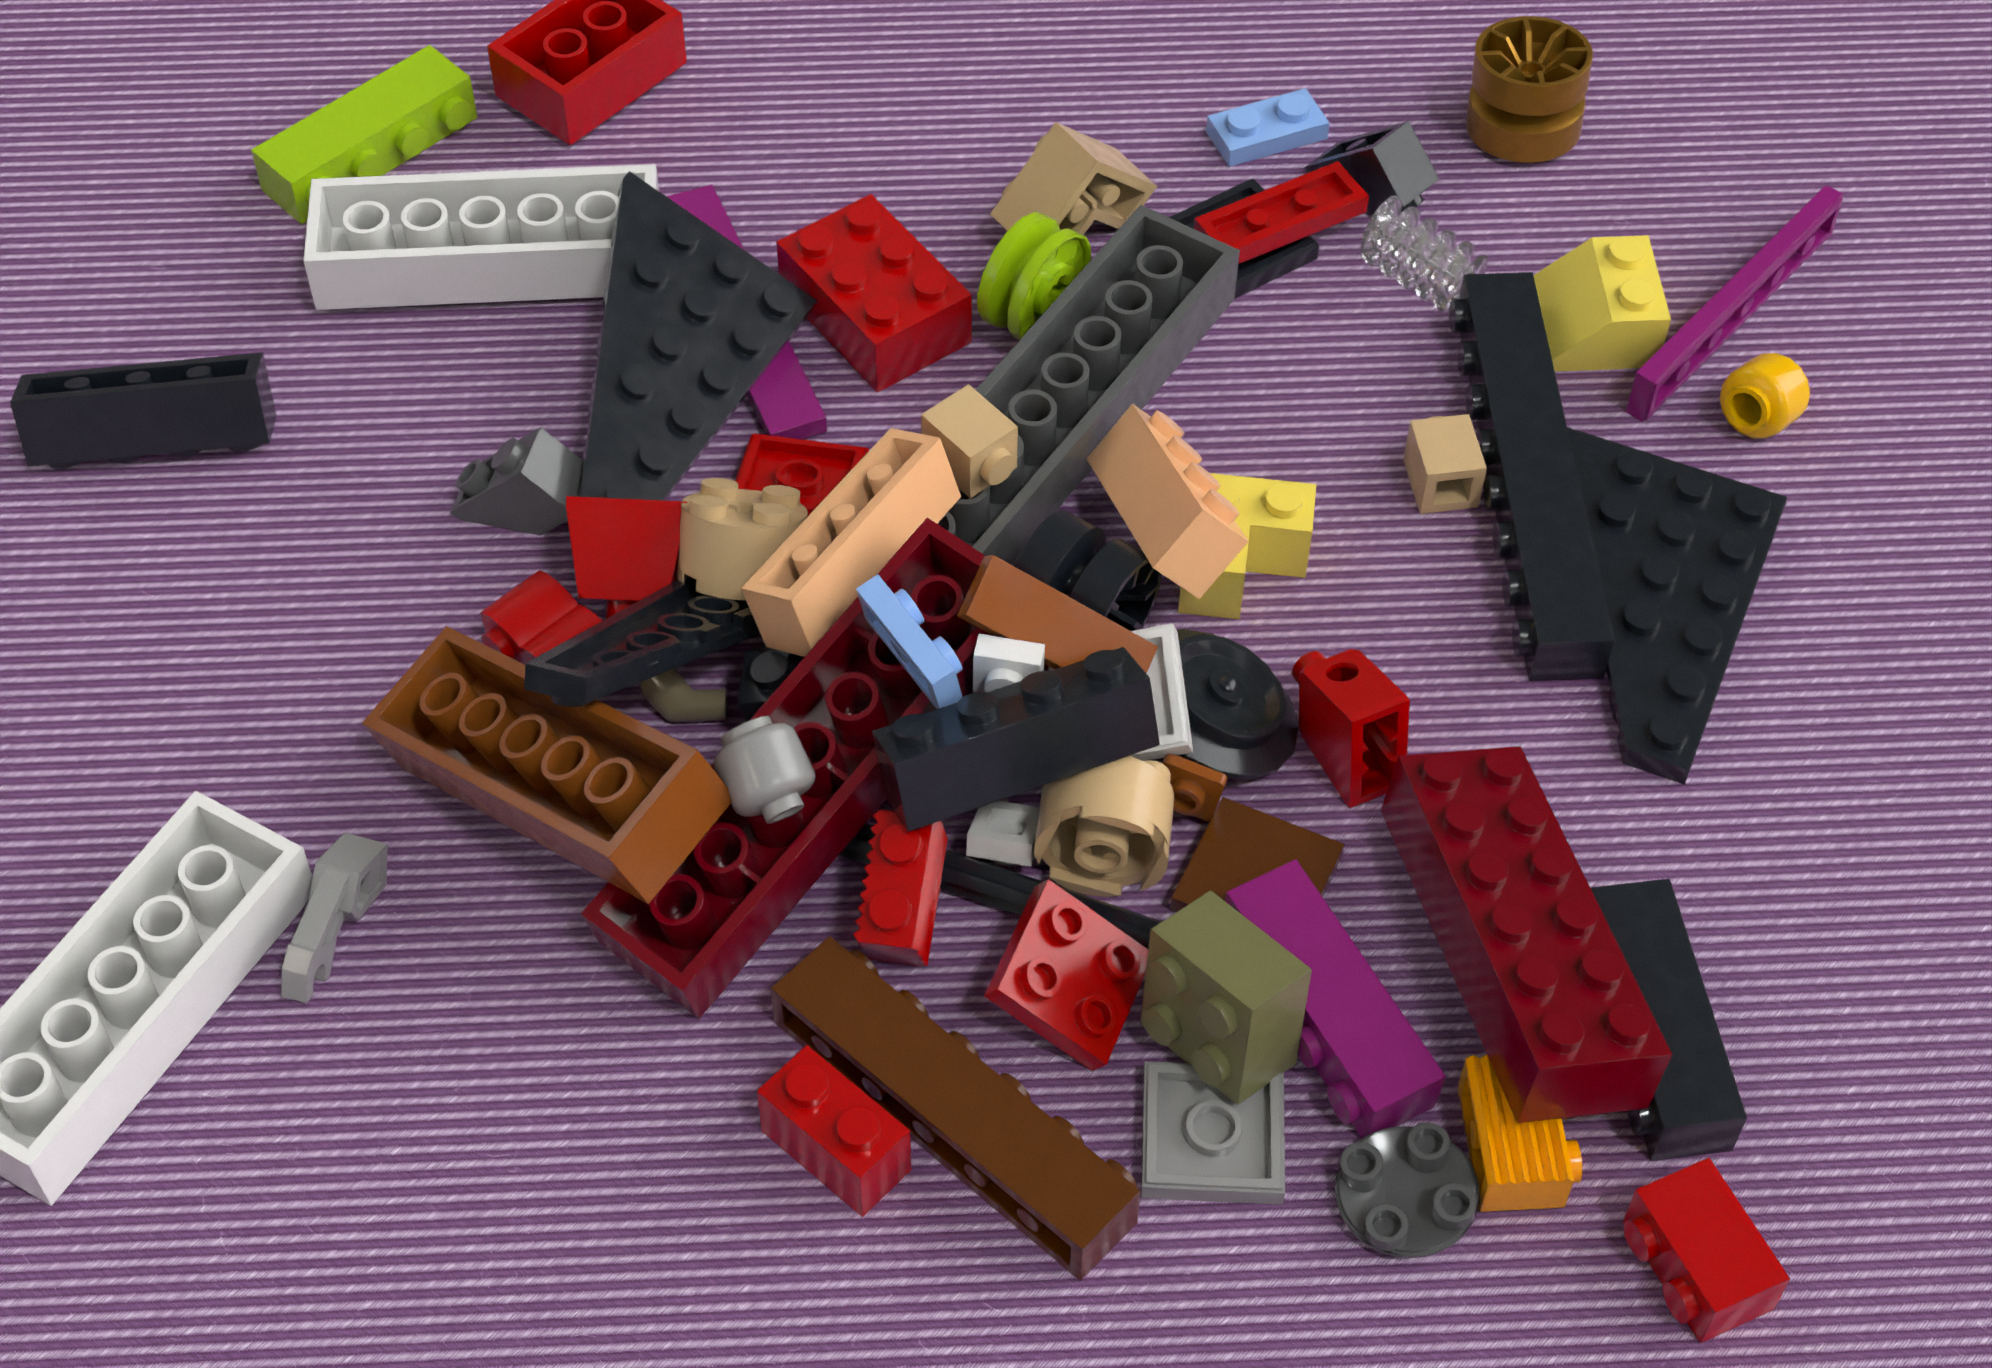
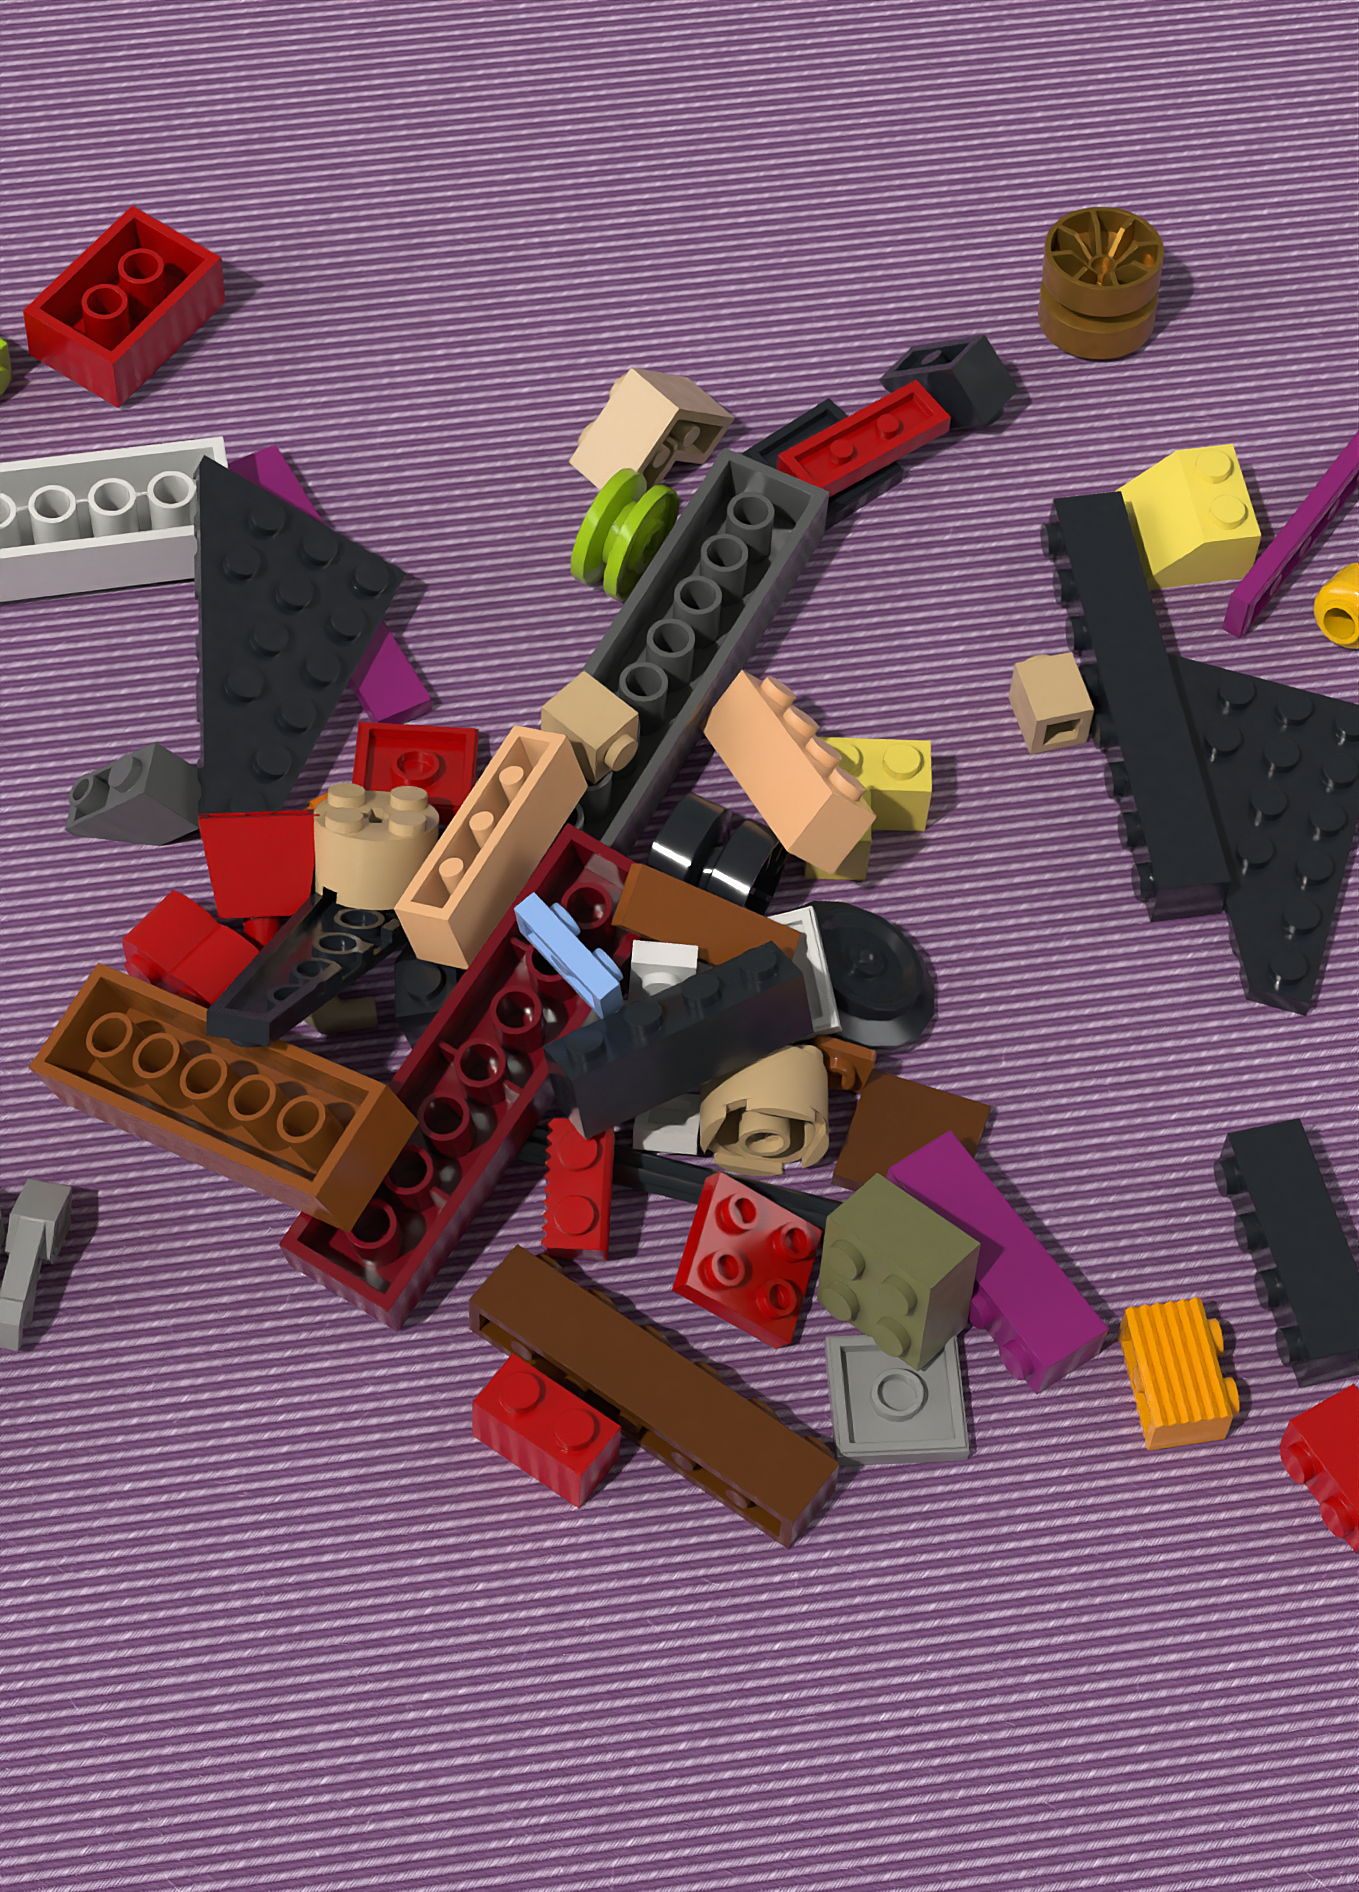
camera: 10 degrees left, 5 degrees up
(764, 769) = (444, 1092): light grey head -> none
(877, 292) = (464, 557): red brick -> none
(1267, 127) = (836, 336): light blue plate -> none
(1352, 721) = (988, 984): red torso -> none
(1407, 1190) = (1080, 1437): dark grey dish -> none
(1416, 256) = (1005, 478): clear piece -> none
(1523, 935) = (1167, 1183): dark red brick -> none

